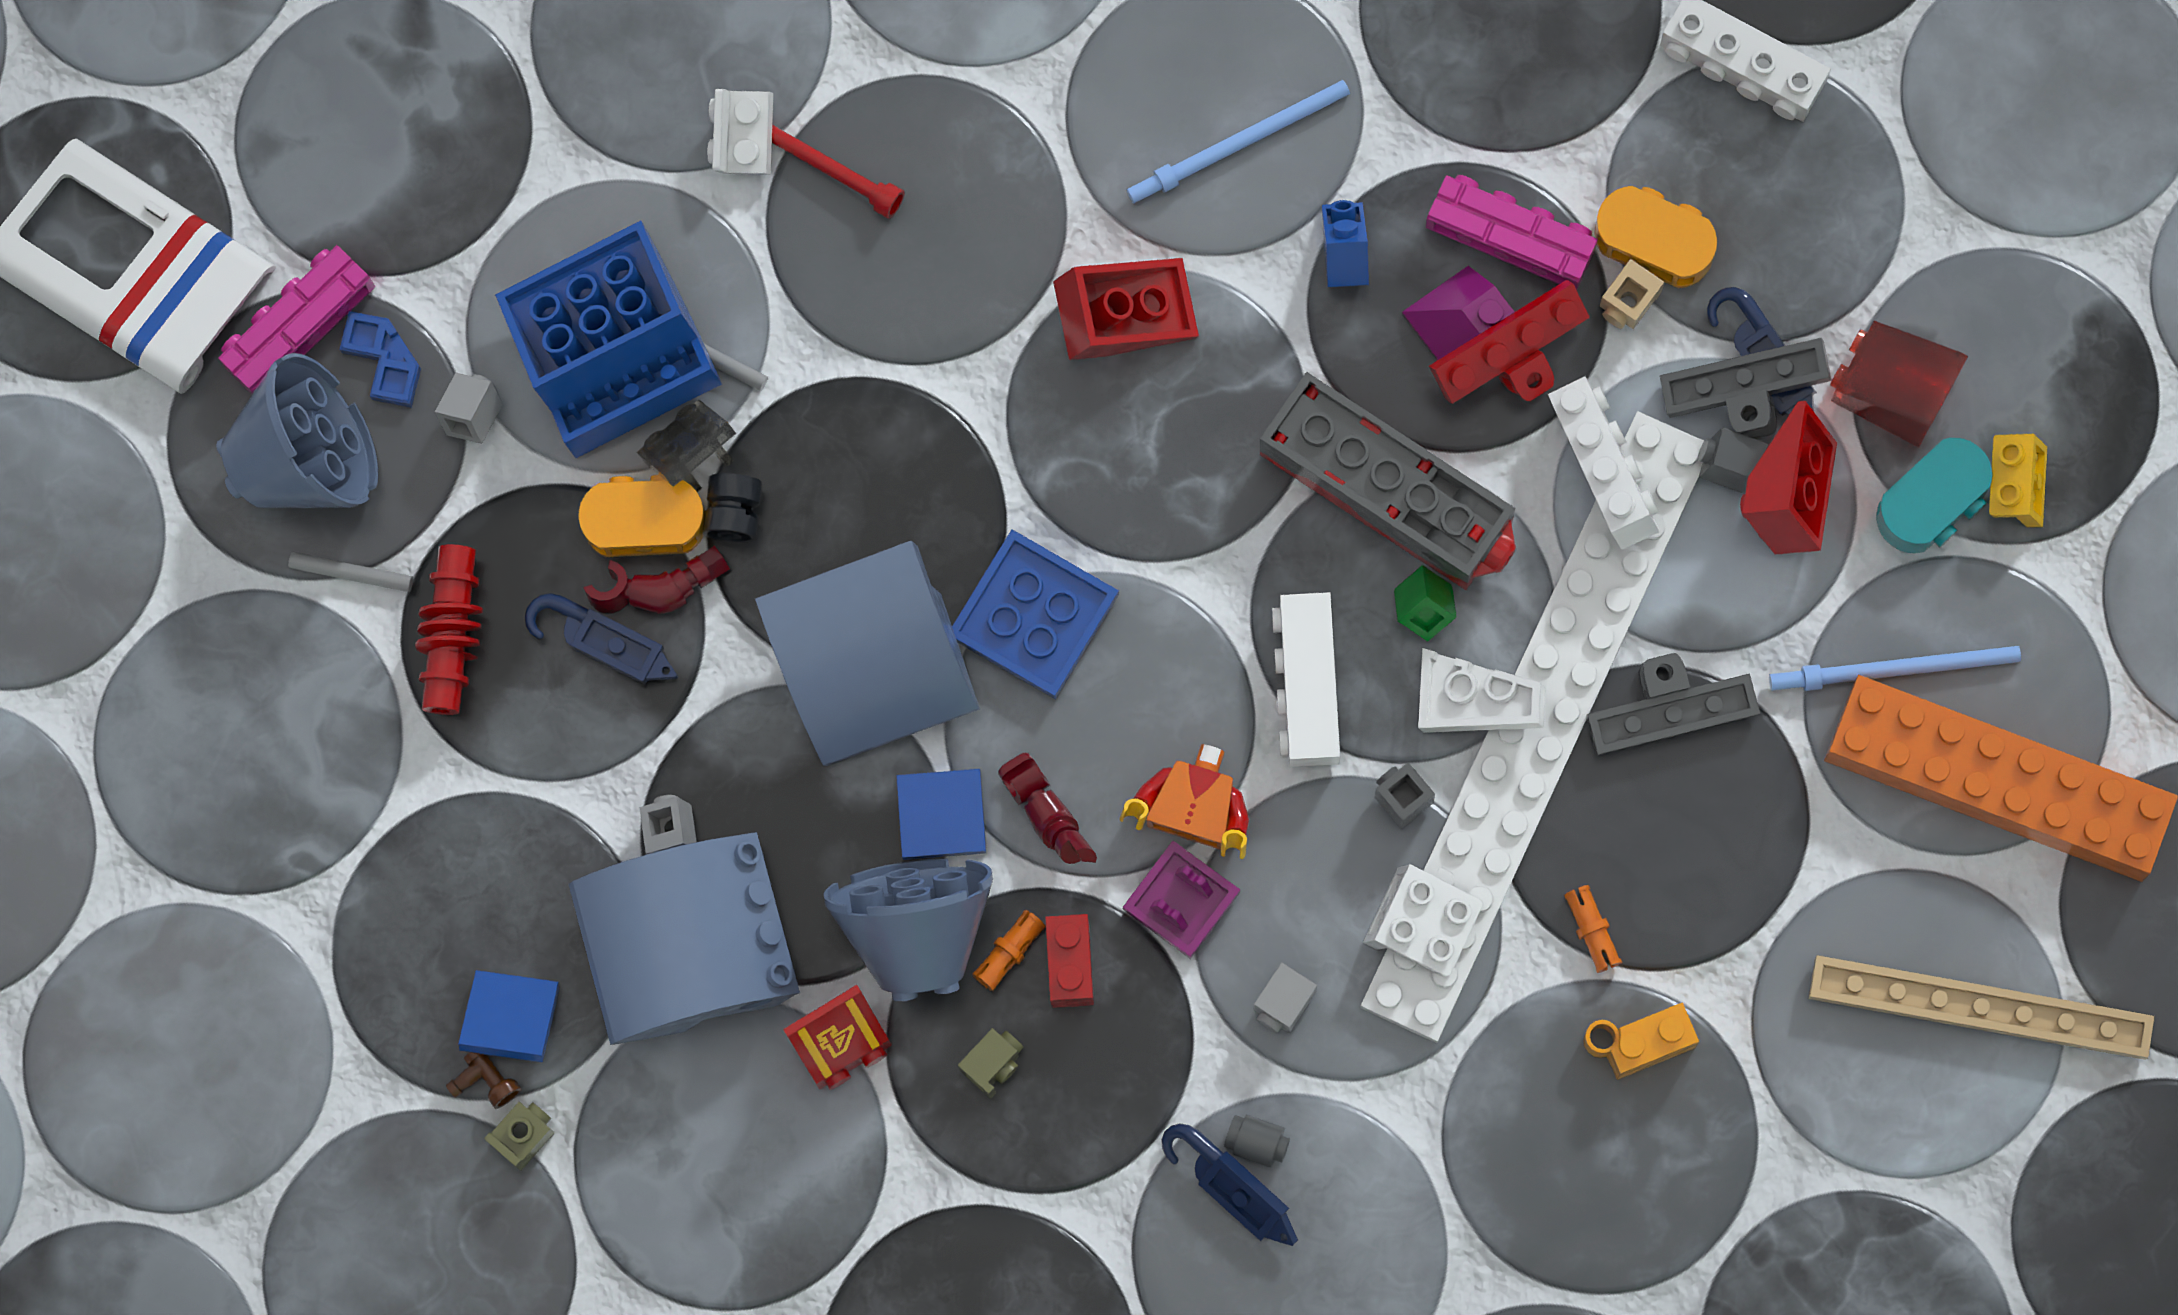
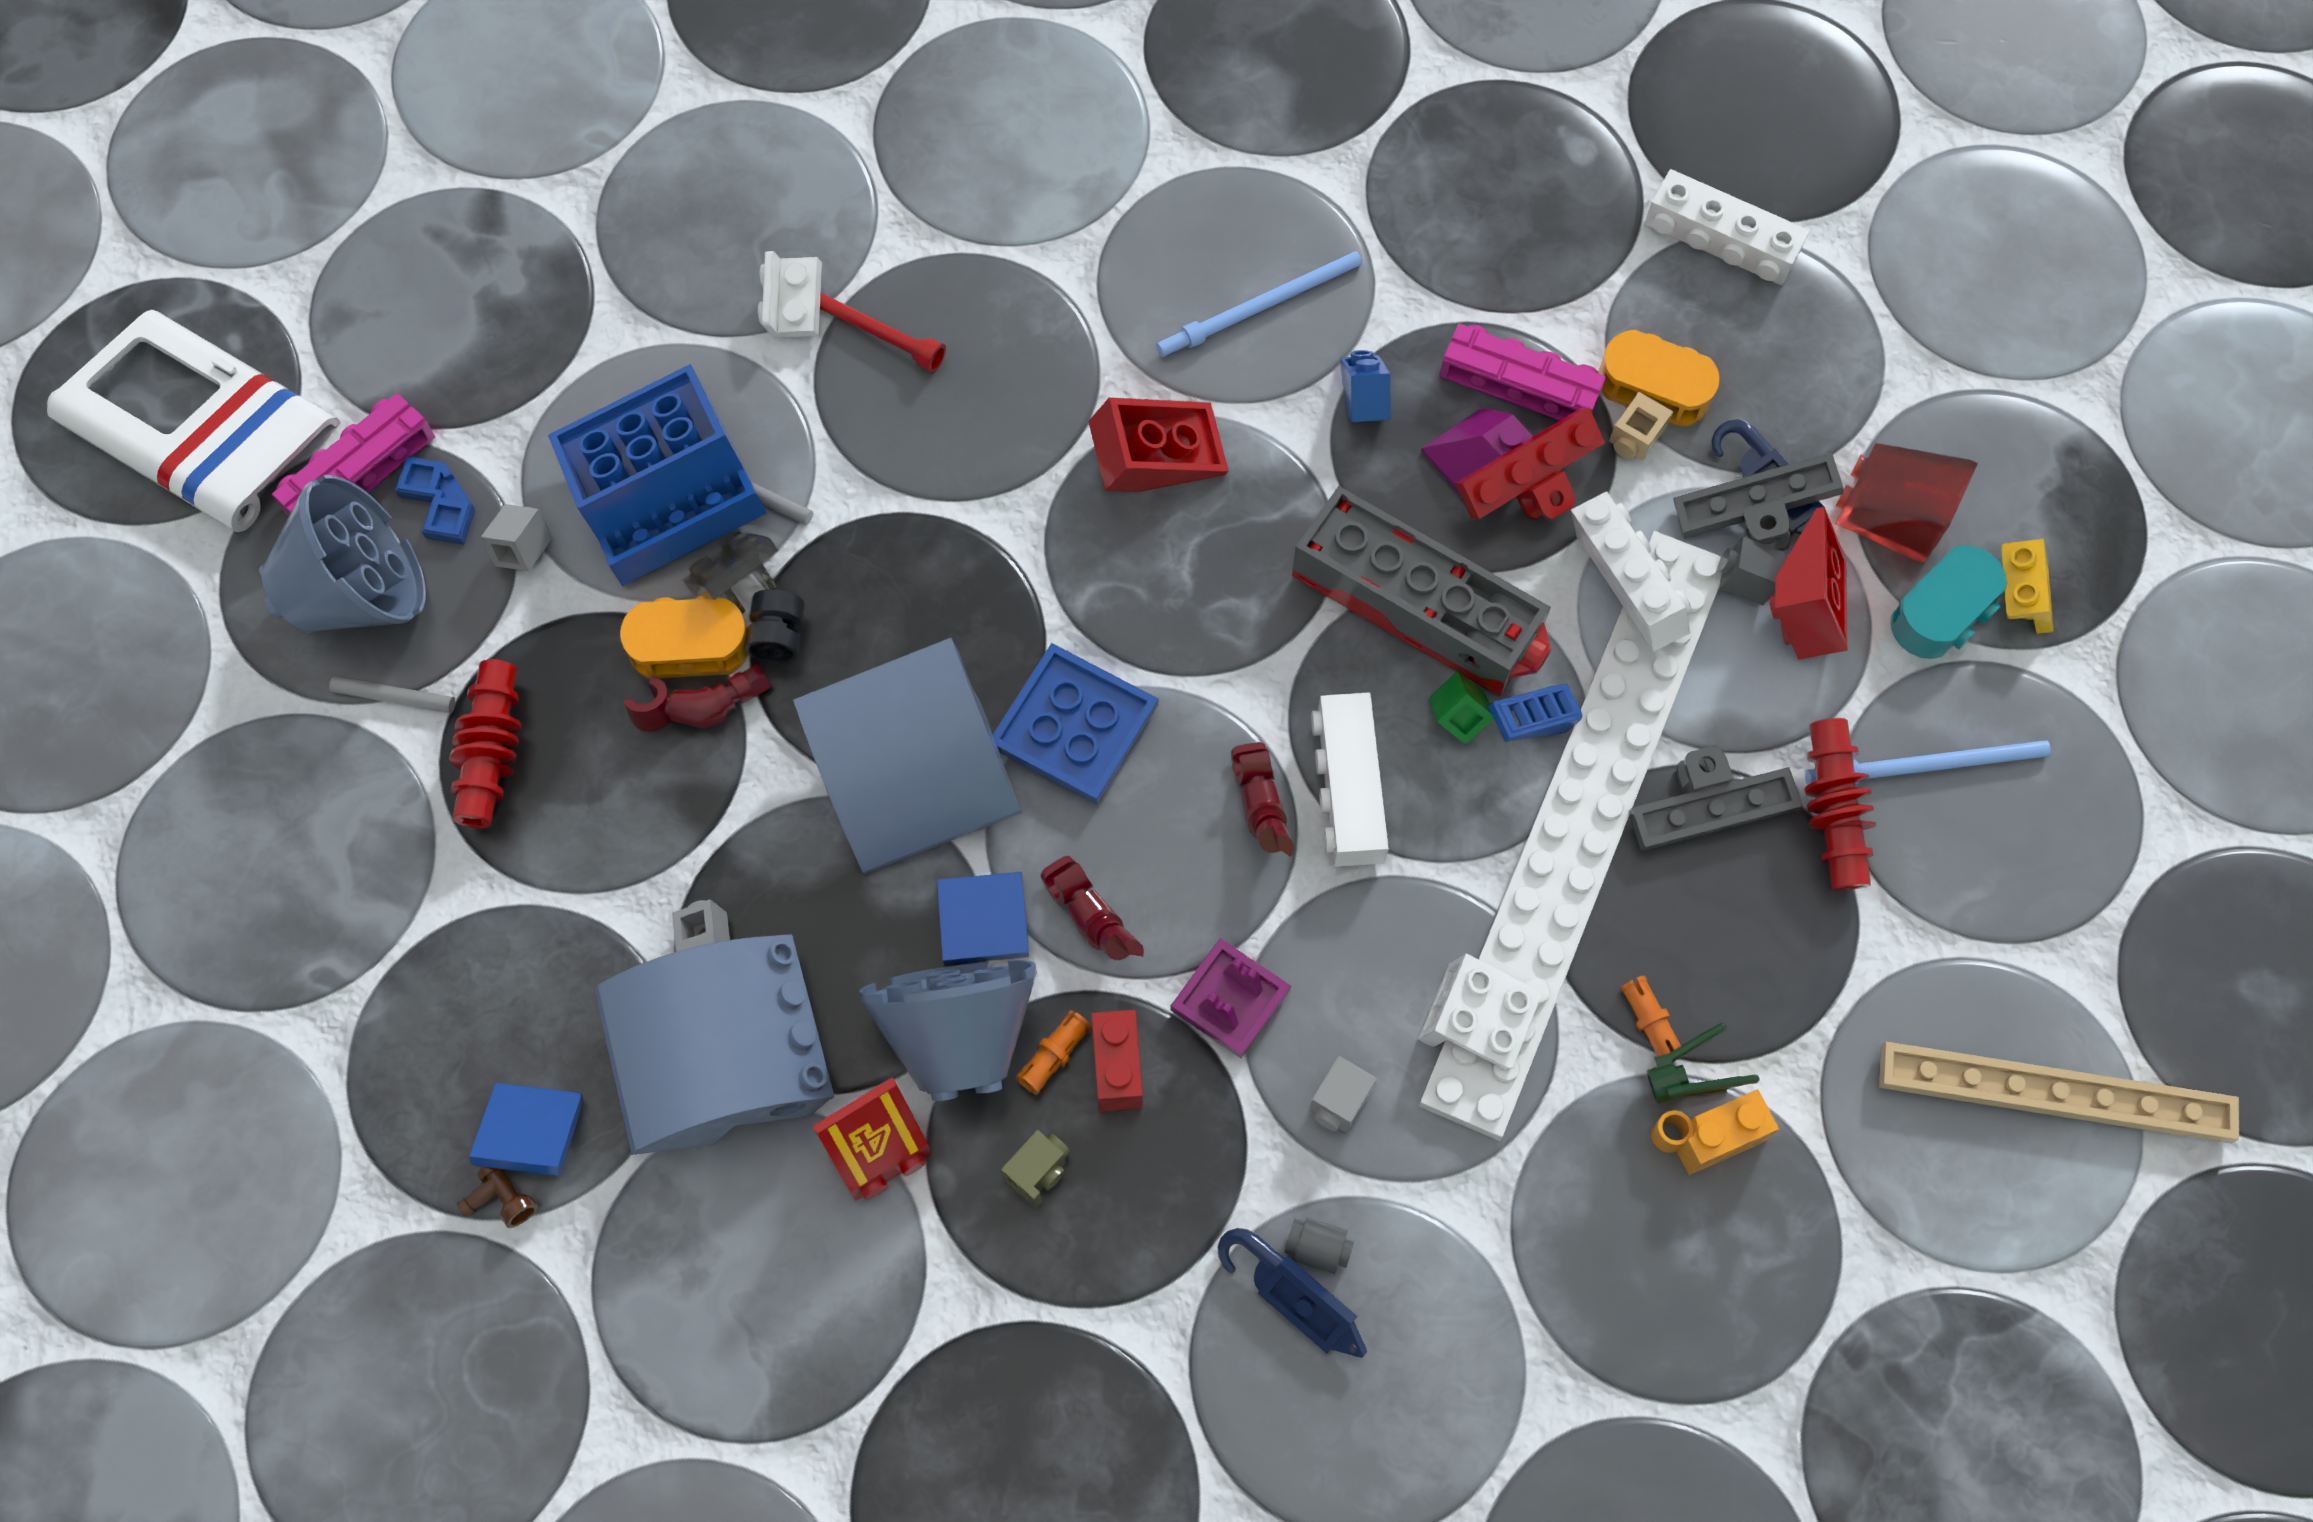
camera: 10 degrees left, 10 degrees down
(521, 1150) = (534, 1270): olive brick -> none
(604, 639) = (643, 753): dark blue plate -> none
(1194, 803) = (1240, 902): torso -> none
(1218, 697) = (1260, 797): none -> dark red piece
(1403, 794) = (1453, 887): dark grey brick -> none
(1475, 698) = (1516, 794): white wing -> none
(1521, 602) = (1553, 701): none -> blue slope
(1604, 991) = (1671, 1081): none -> dark green plant
(1795, 714) = (1838, 804): none -> red piece
(2001, 778) = (2052, 864): orange brick -> none

